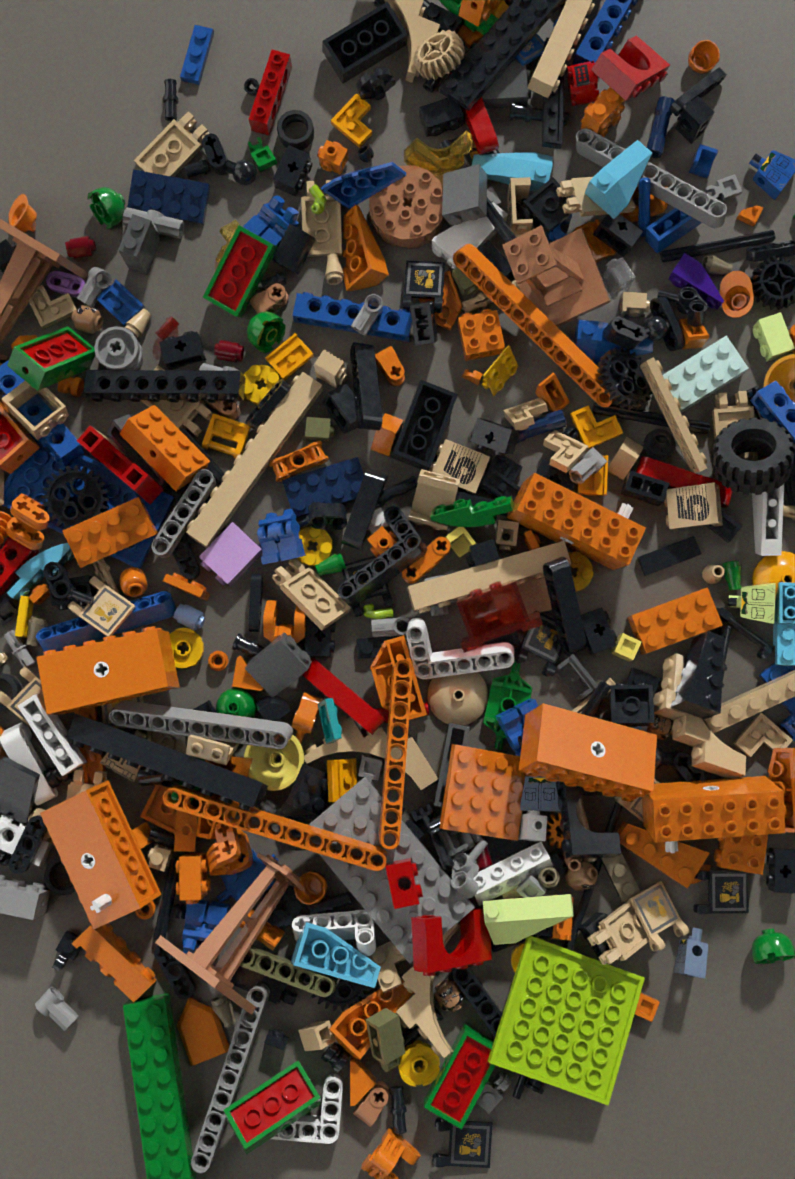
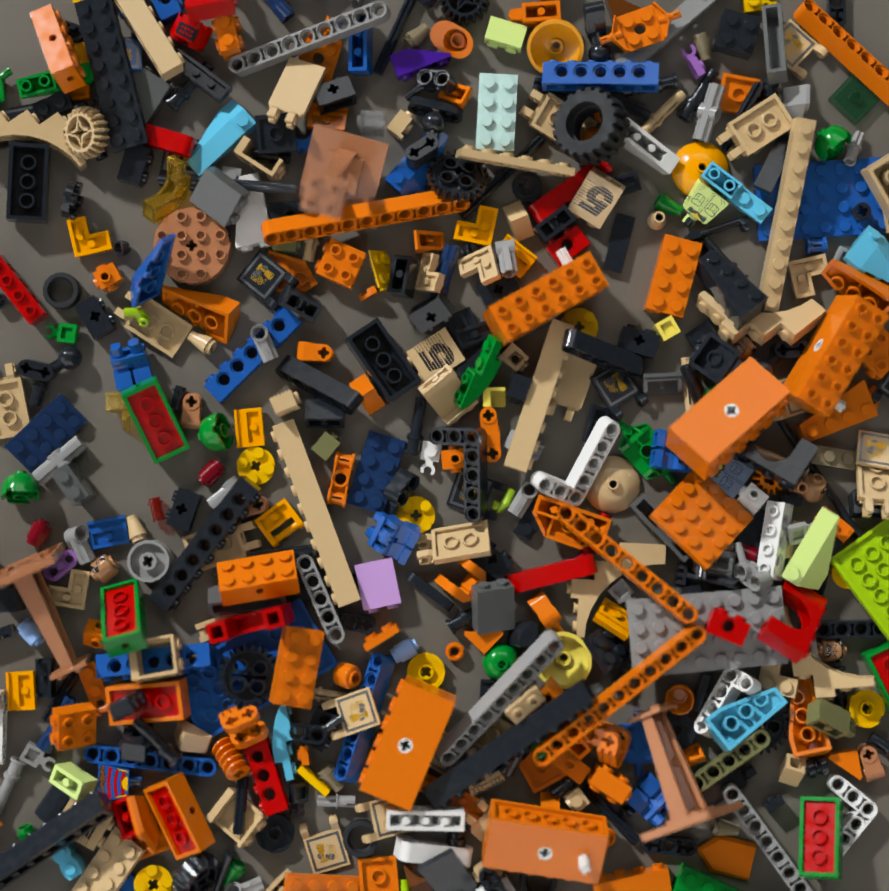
camera: 60 degrees left, 5 degrees up
(71, 385) = (152, 616): orange wheel -> none
(267, 404) = (278, 472): black beam -> none
(293, 249) = (164, 362): black brick -> none
(328, 715) = (564, 597): teal plate -> none
(331, 565) = (442, 511): green cone -> none
(364, 508) = (416, 454): black beam -> none
(494, 614) = (572, 412): clear red windscreen -> none
(507, 393) = (403, 276): none -> black brick
(531, 540) = (533, 341): orange plate -> none
(546, 874) = (795, 510): dark tan cone -> none
(618, 179) = (298, 69): medium azure wedge -> none
(644, 205) = (328, 59): blue axle -> none
(646, 510) = (575, 237): none -> red brick

